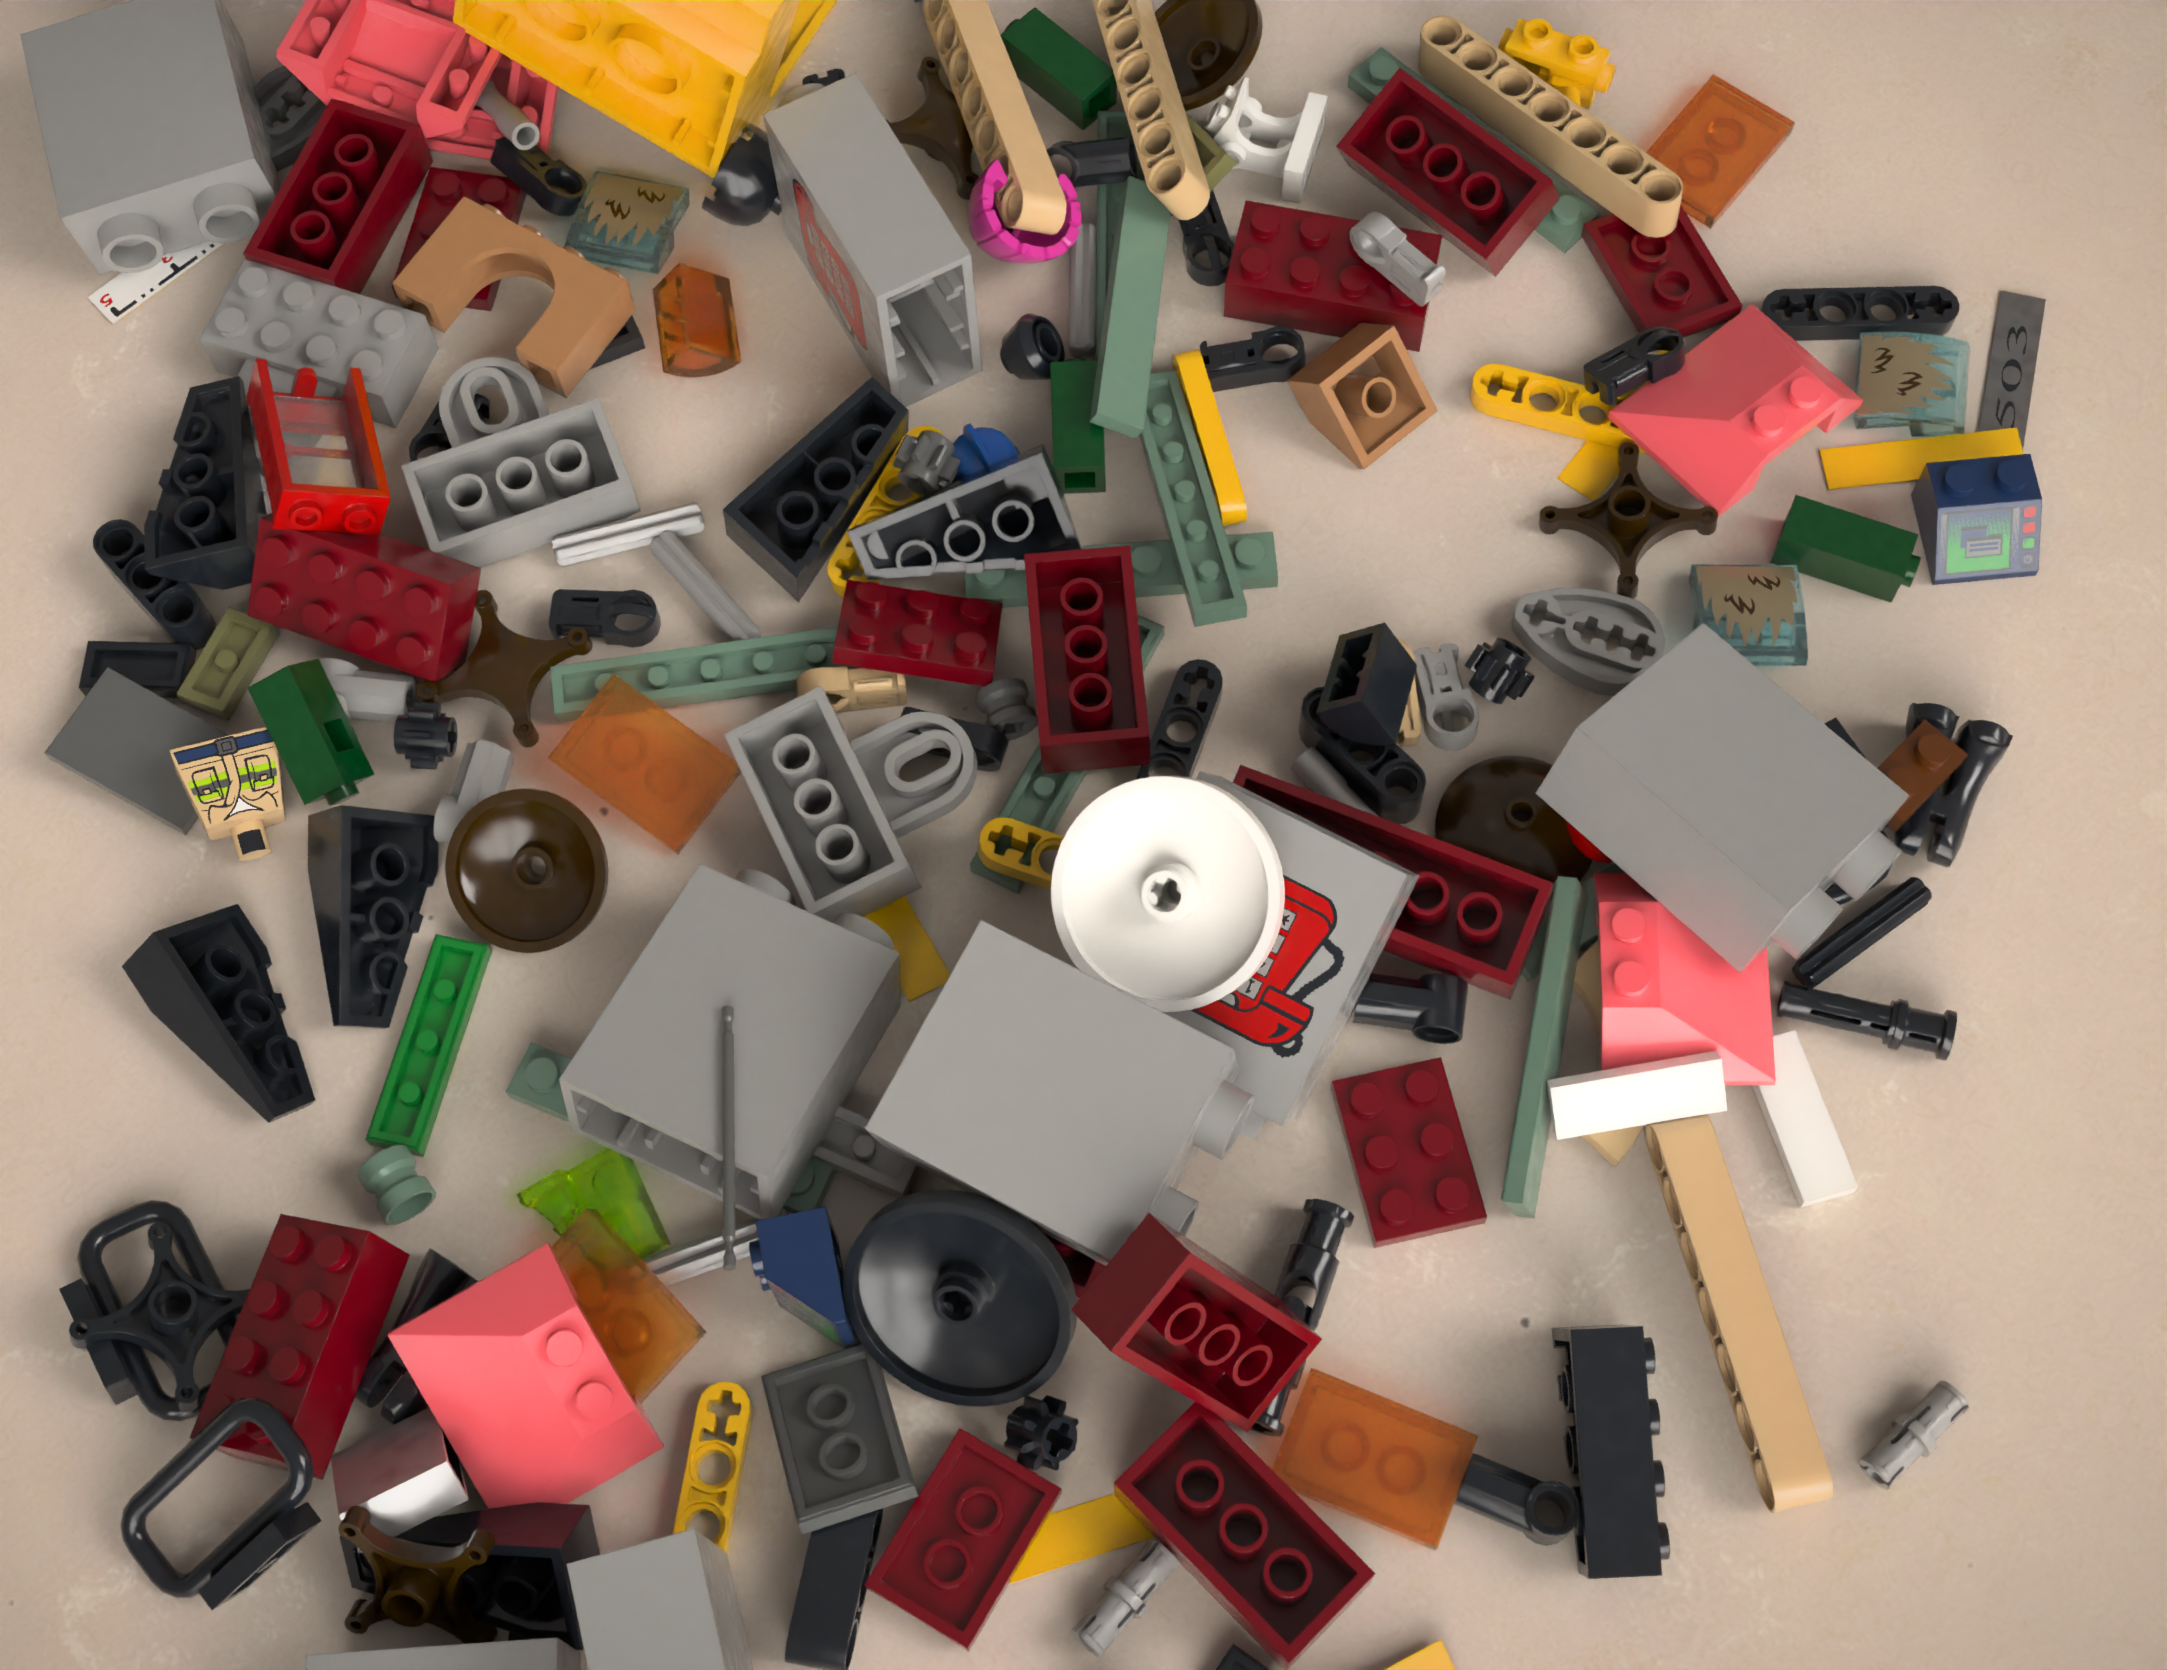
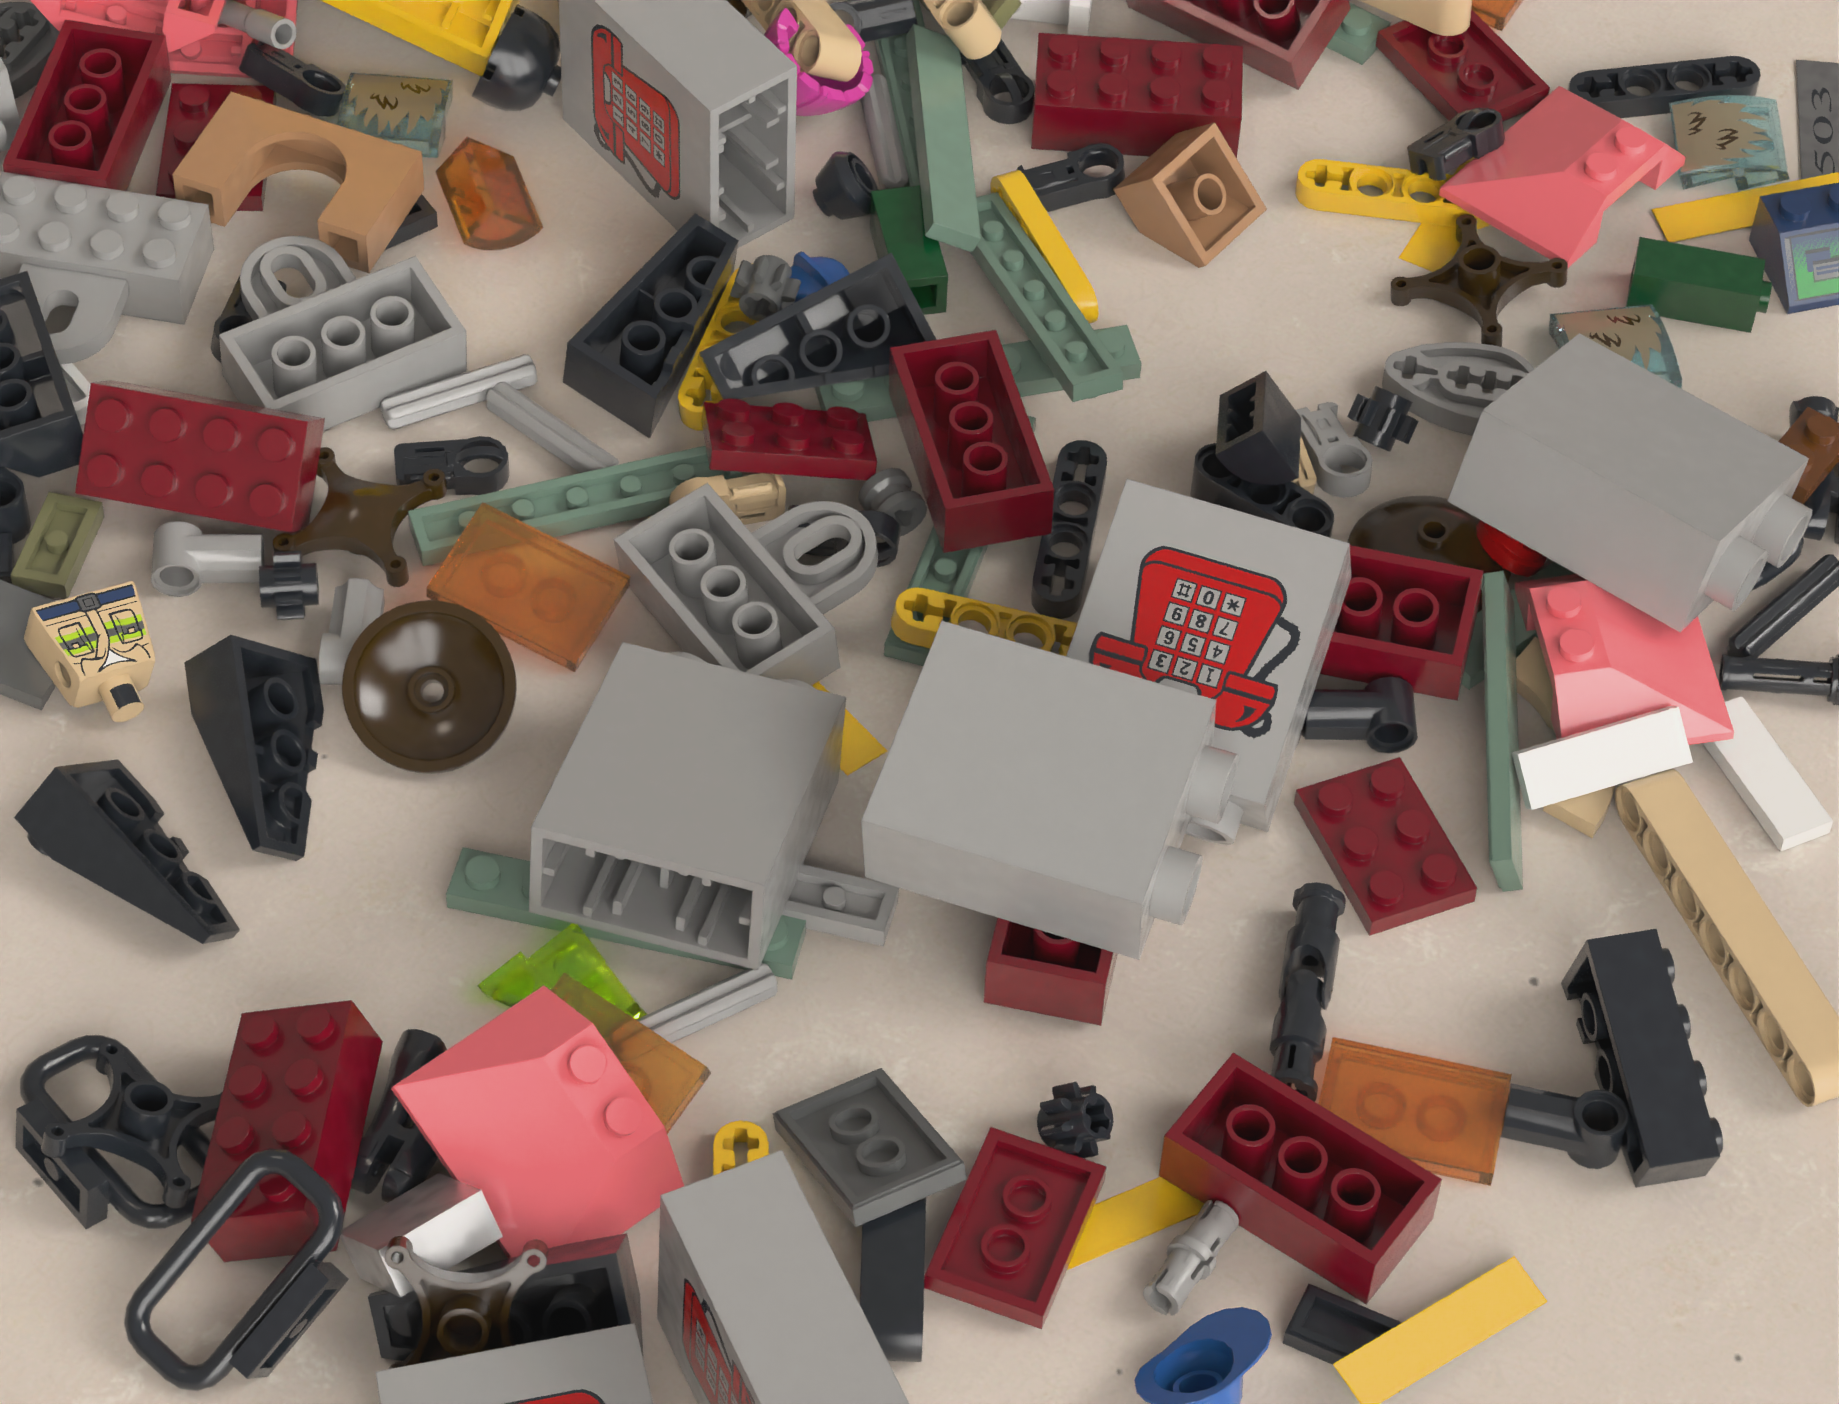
camera: 15 degrees left, 15 degrees down
(311, 733) = (172, 584): dark green brick -> none
(319, 455) = (142, 334): red door -> none
(396, 1184) = (344, 977): sand green wheel -> none
(429, 1044) = (351, 867): green tile -> none
(729, 1258) = (718, 856): dark grey piece -> none
(804, 1269) = (807, 1004): dark blue slope -> none
(960, 1298) = (973, 992): black dish -> none
(1116, 903) = (1114, 531): white dish -> none
(1195, 1323) = (1224, 960): dark red brick -> none
(1389, 252) = (1209, 64): light grey piece -> none

